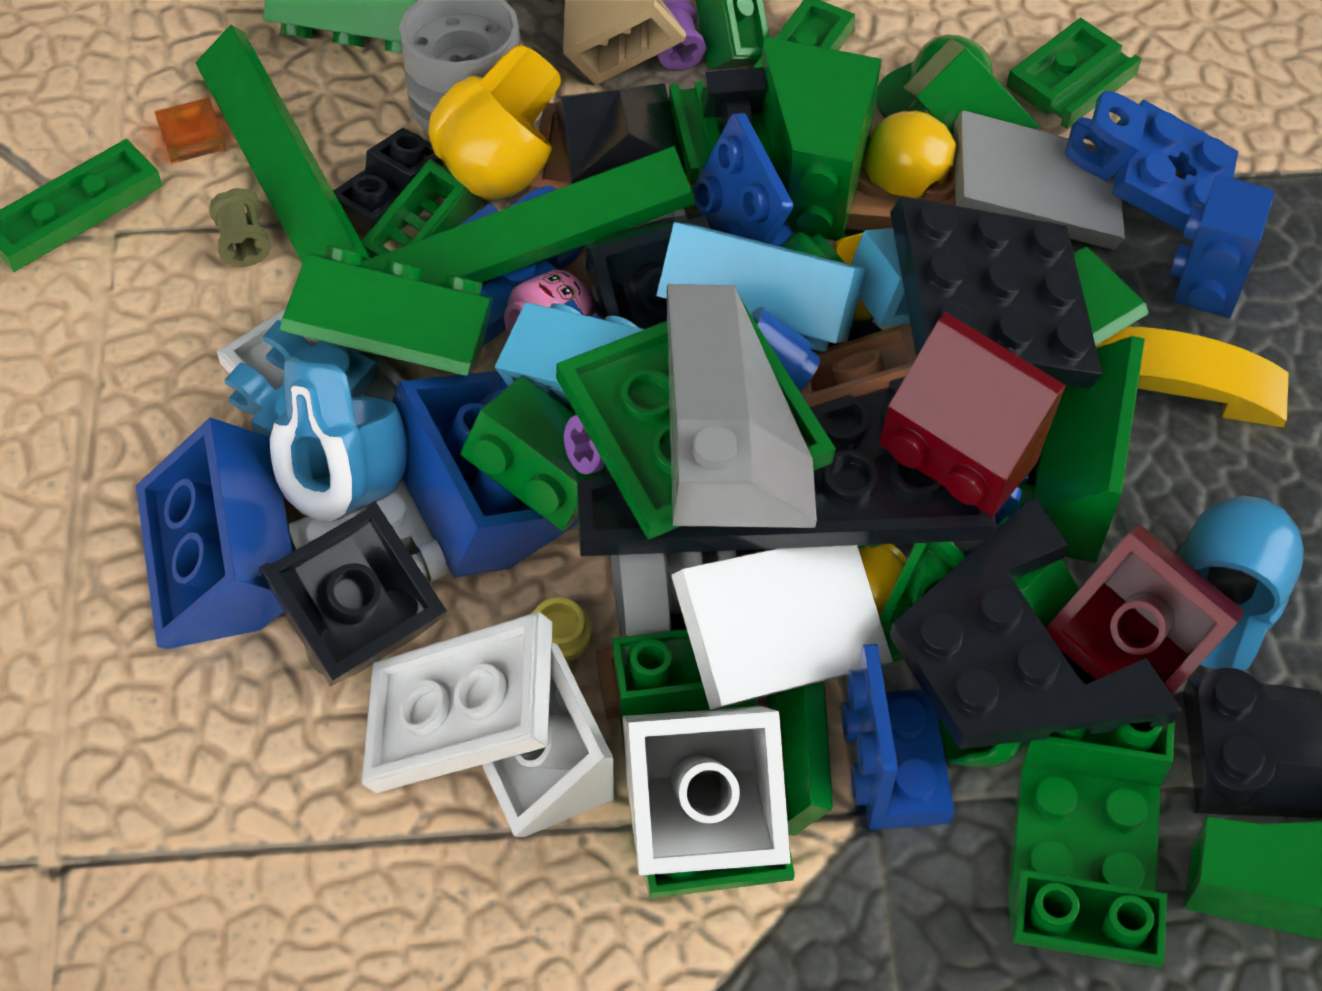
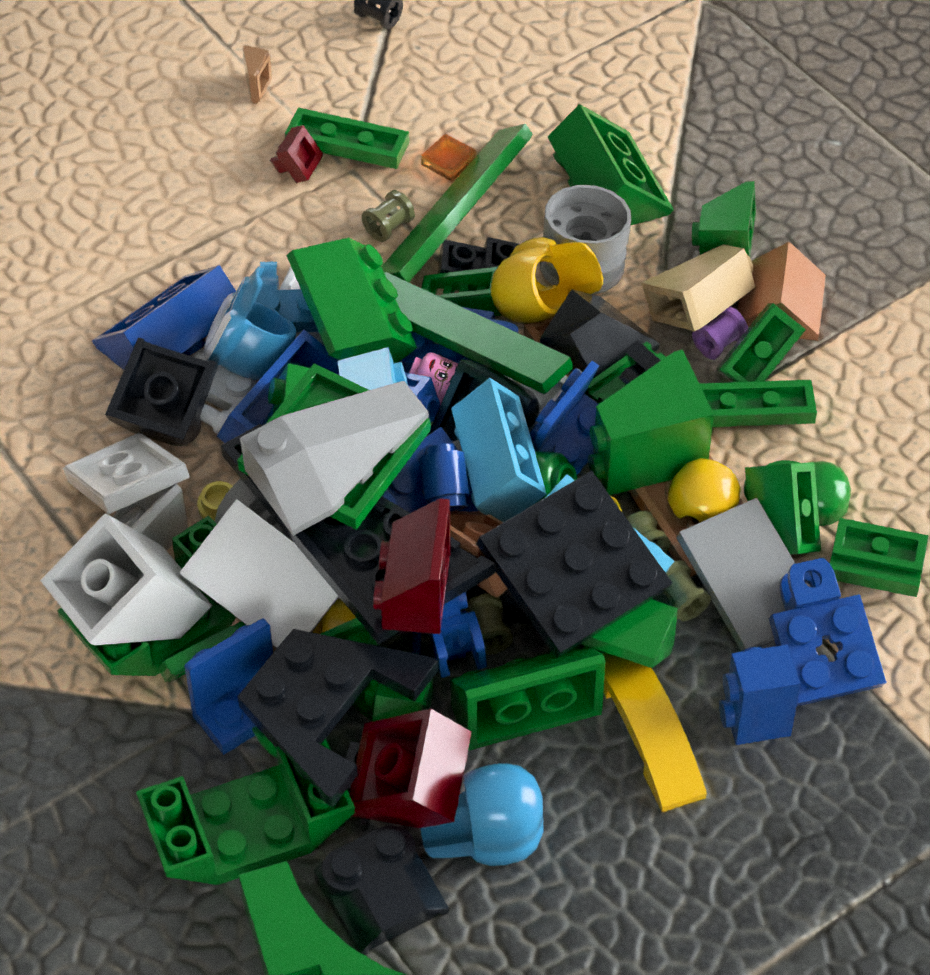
camera: 60 degrees right, 5 degrees down
(50, 266) = (297, 154): none -> dark red tile

